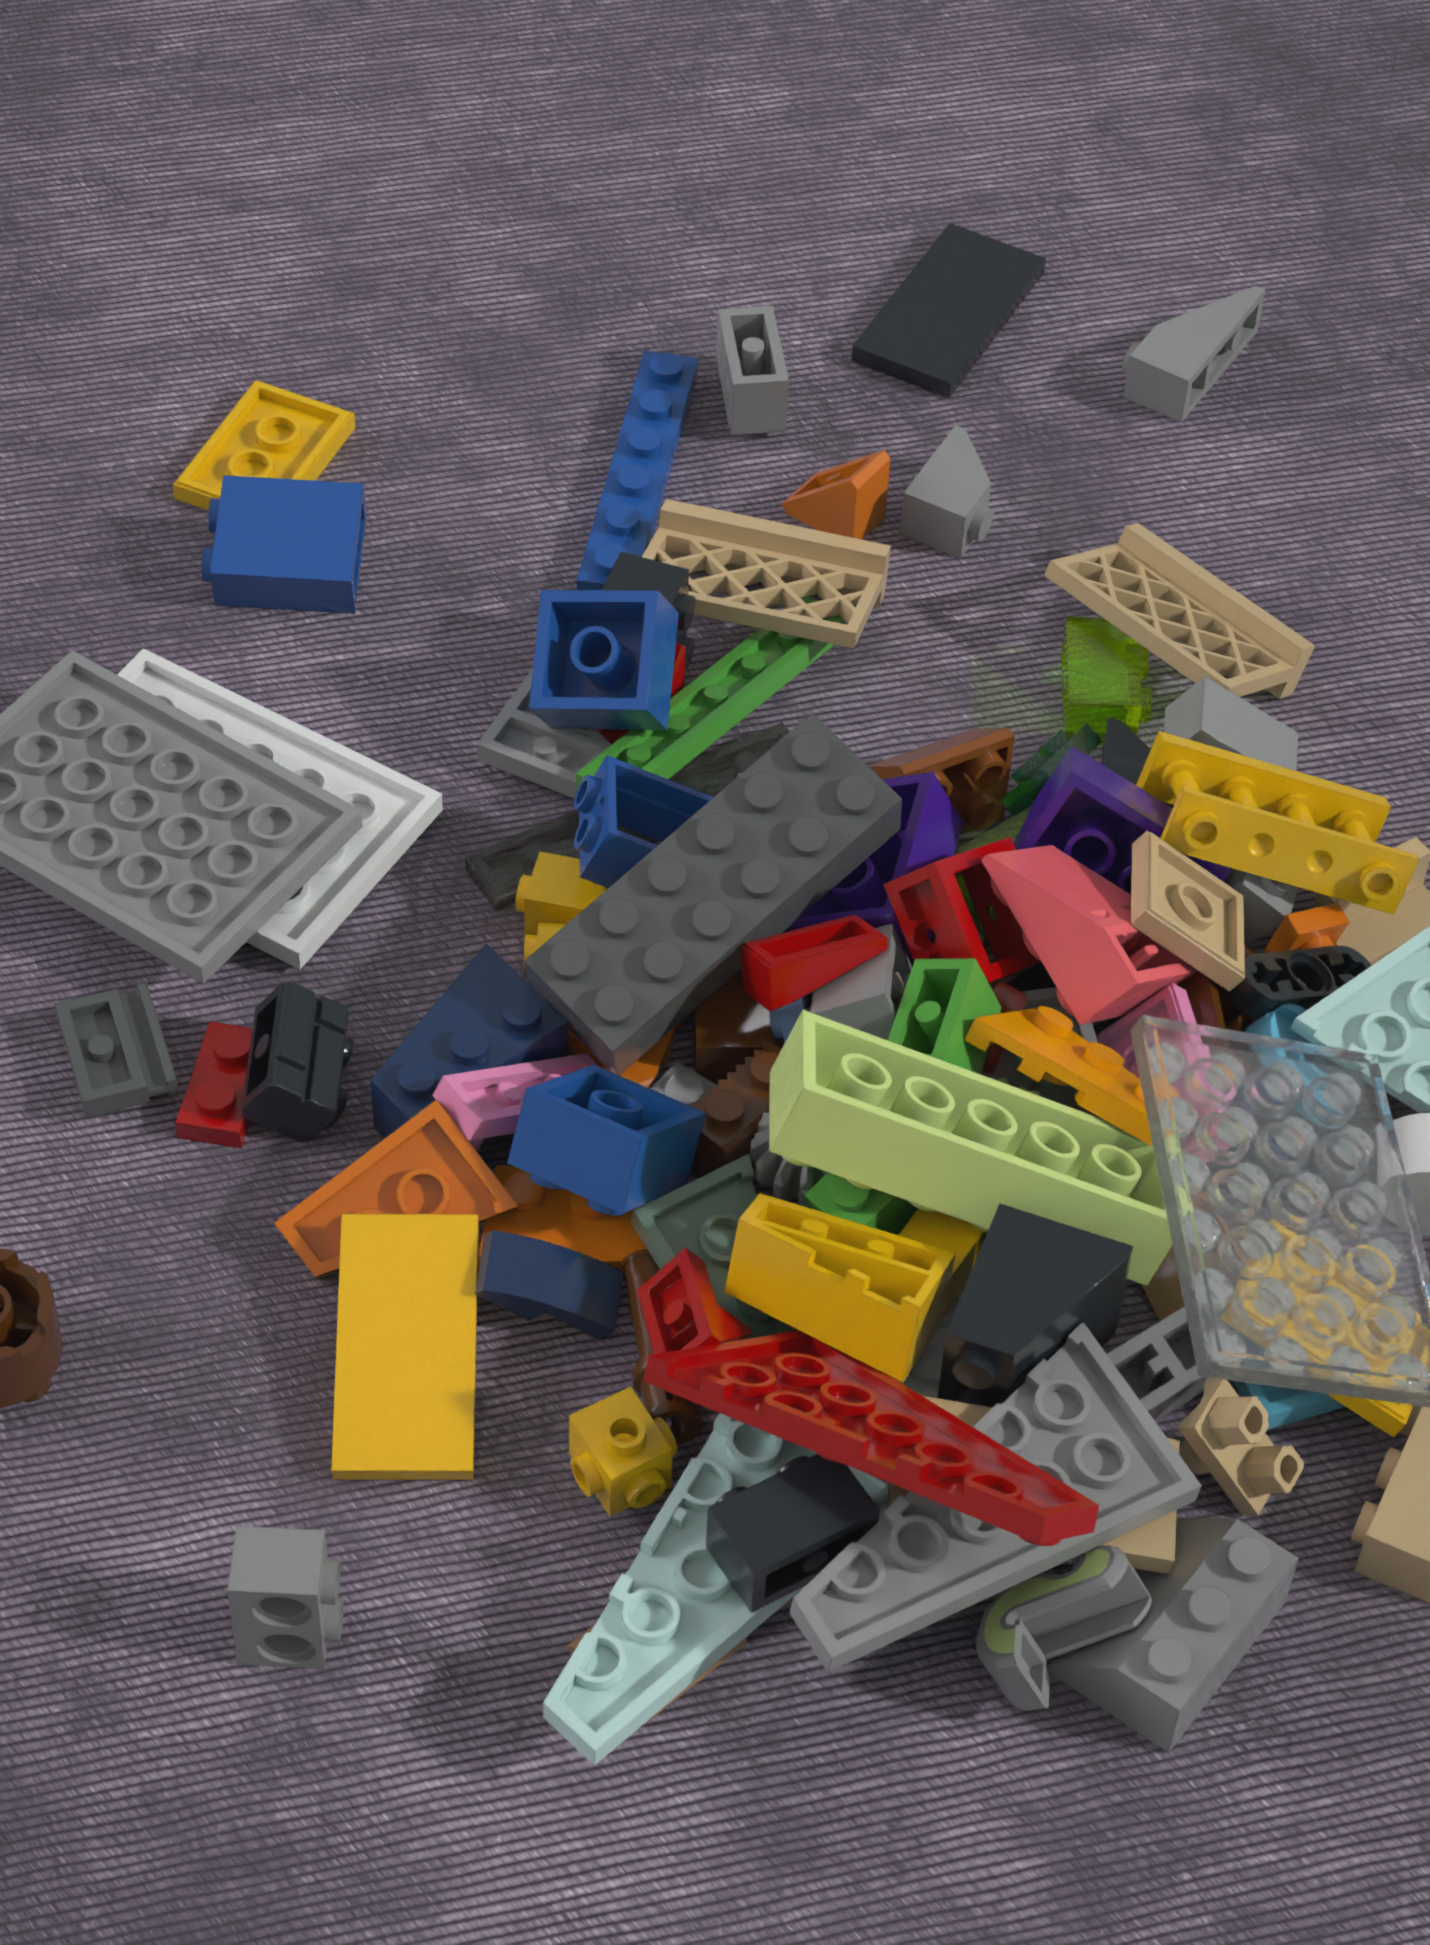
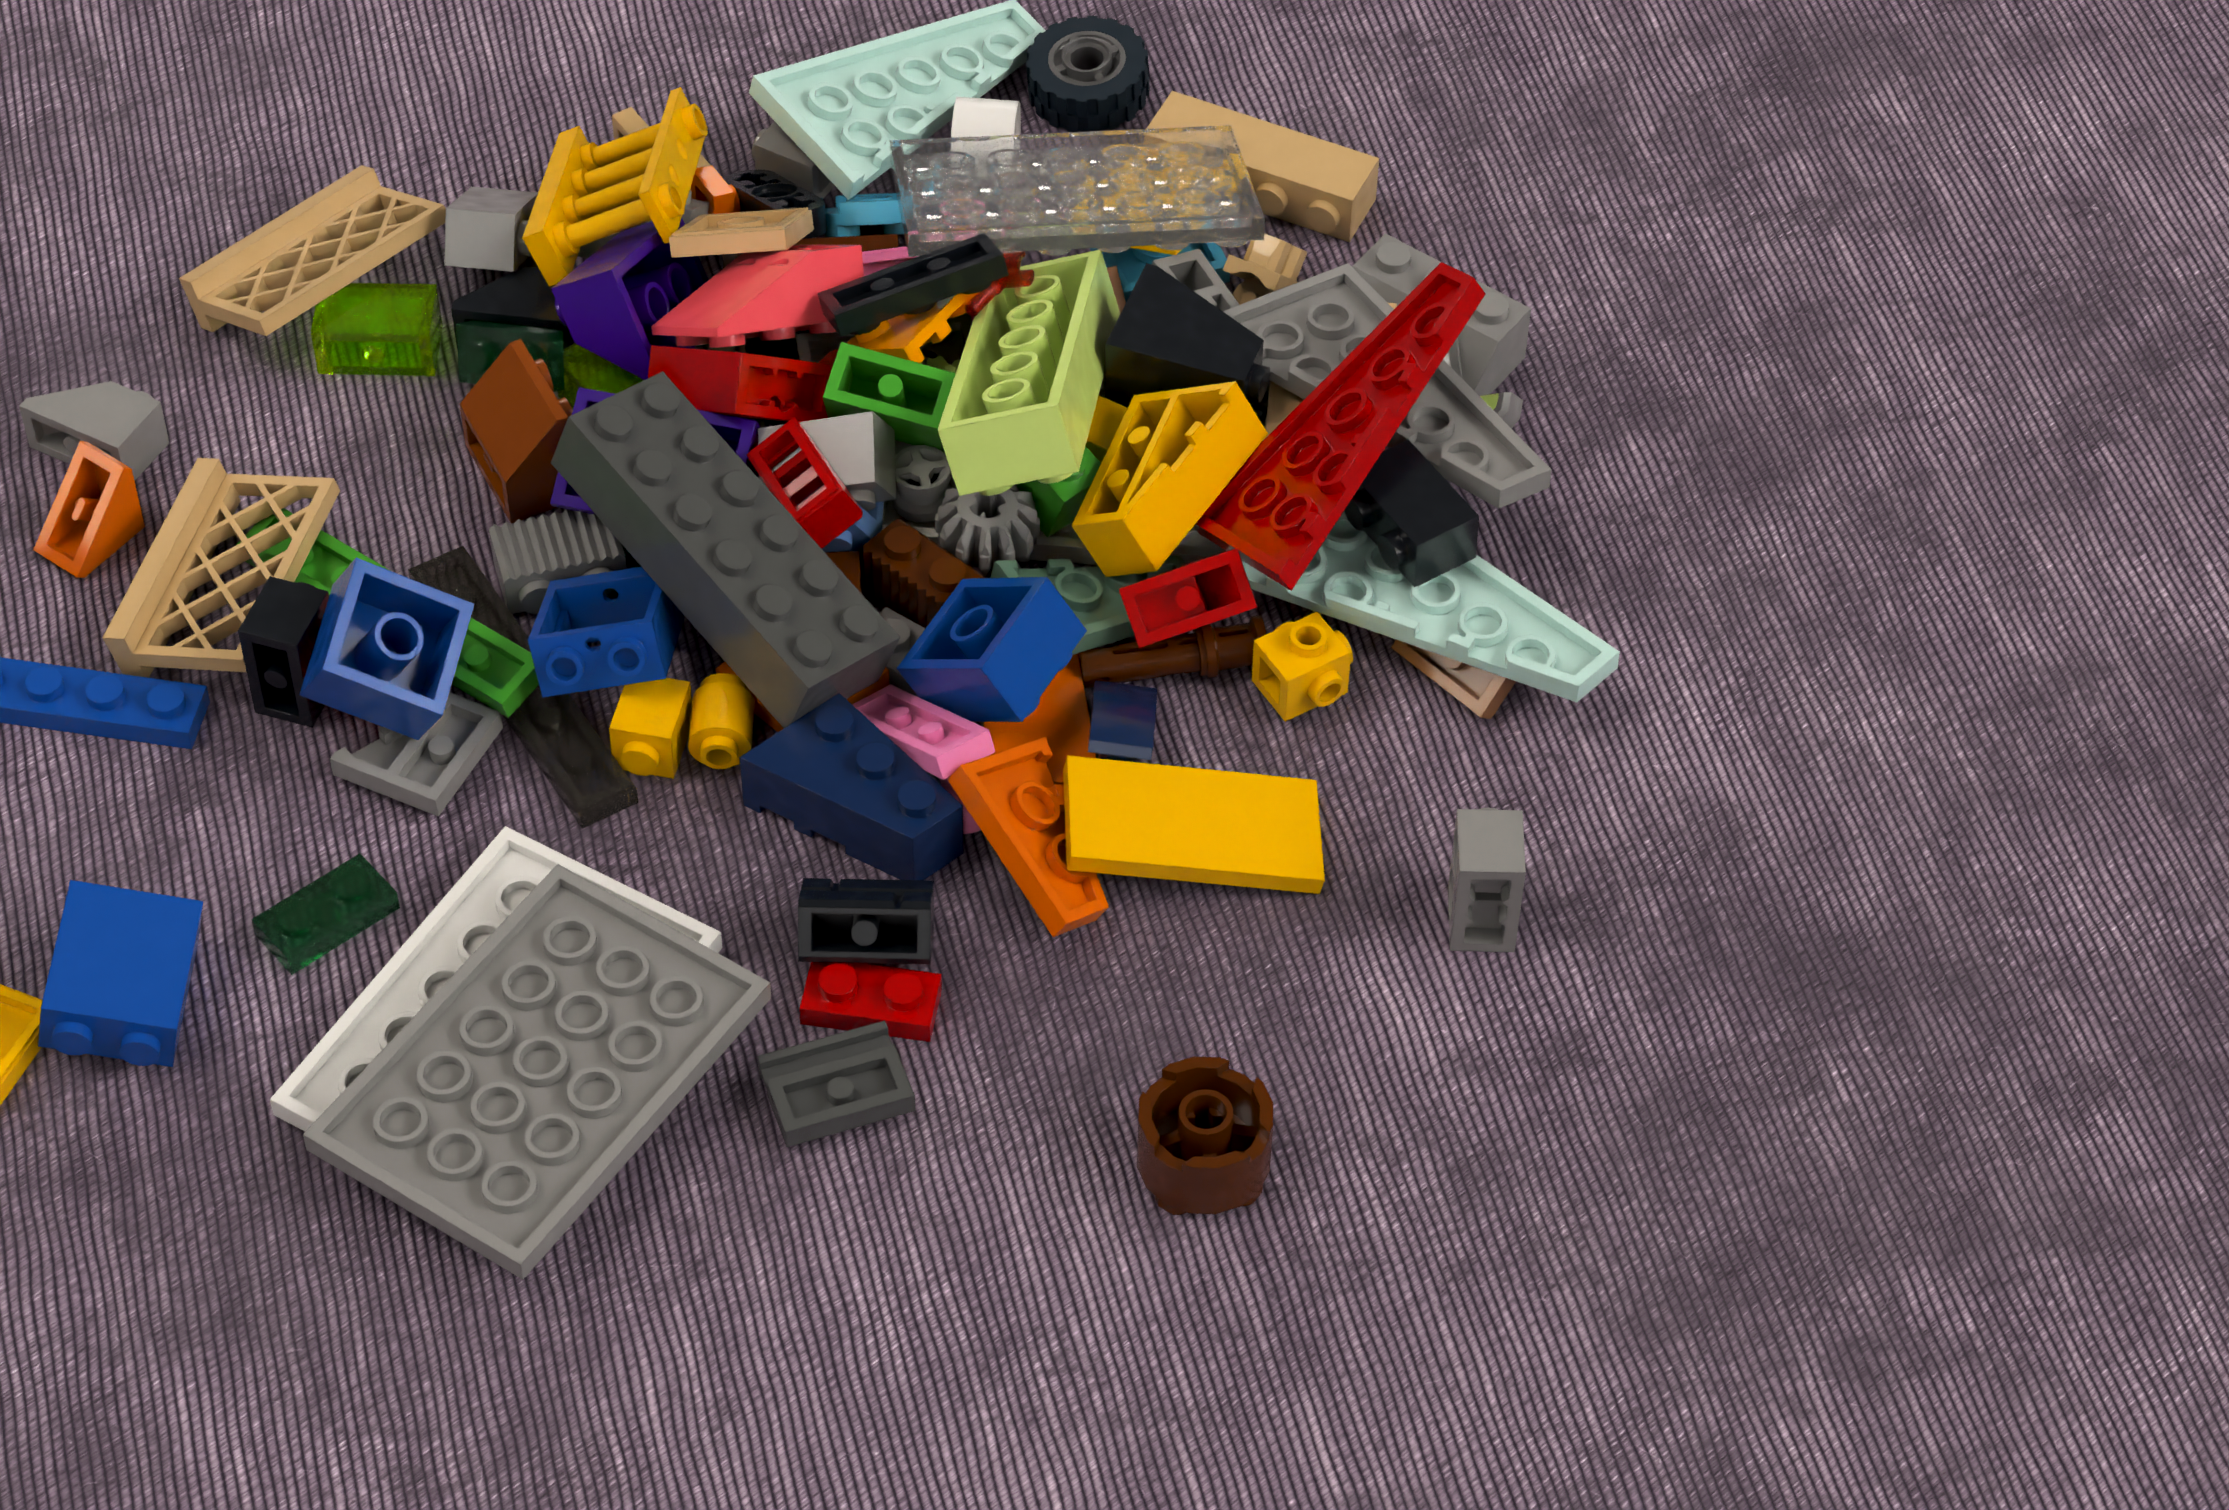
camera: 90 degrees left, 0 degrees up
(367, 688) = (325, 913): none -> clear green plate
(1078, 1029) = (913, 285): none -> black plate
(1133, 1120) = (1016, 278): none -> clear red hand

